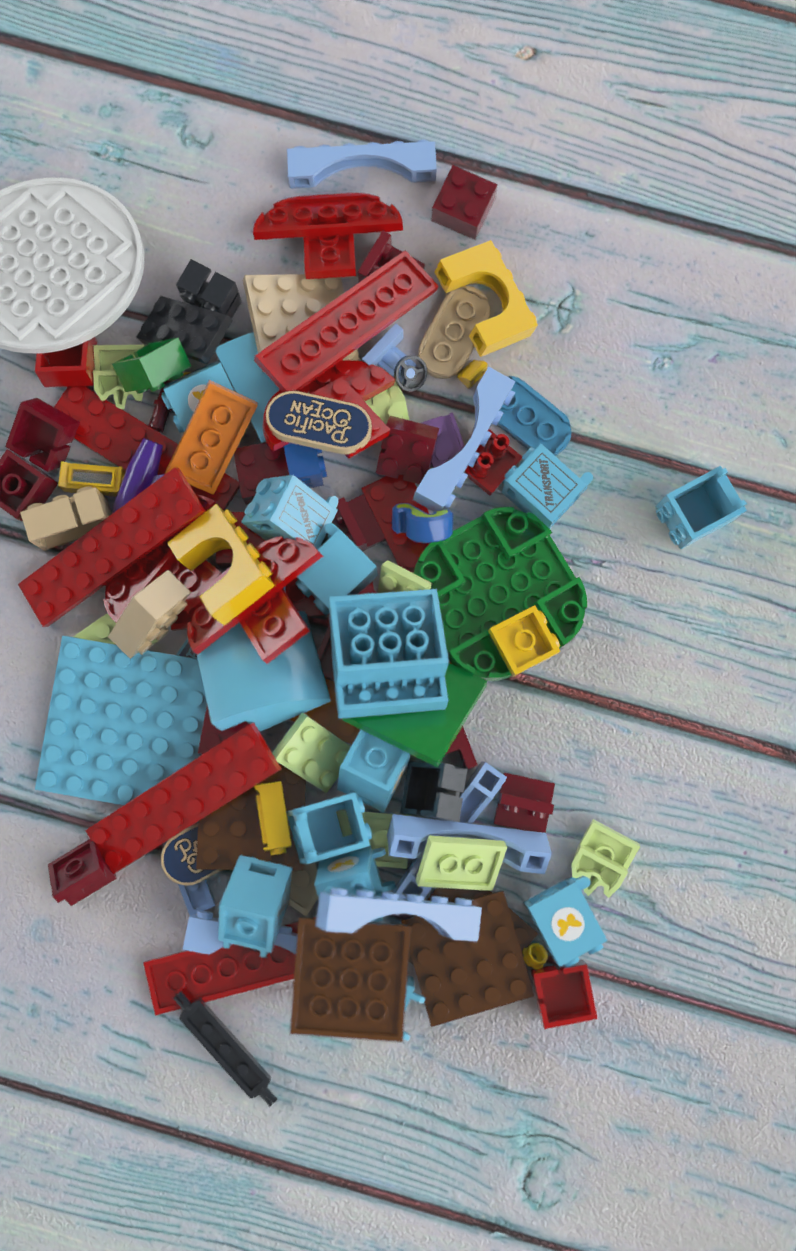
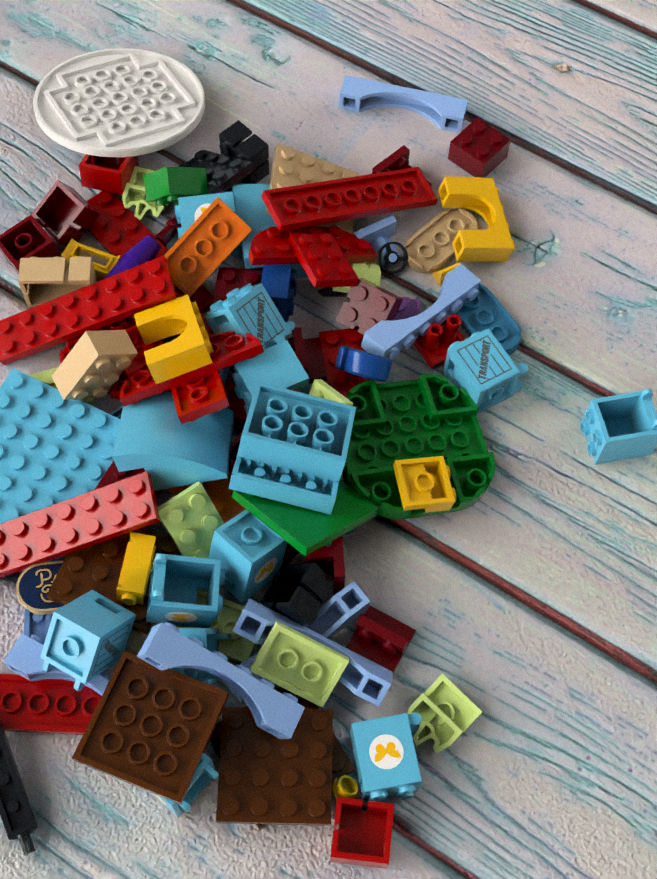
camera: 15 degrees right, 20 degrees down
(318, 422) = (298, 250): tile -> none
(328, 228) = (358, 136): red plate -> none

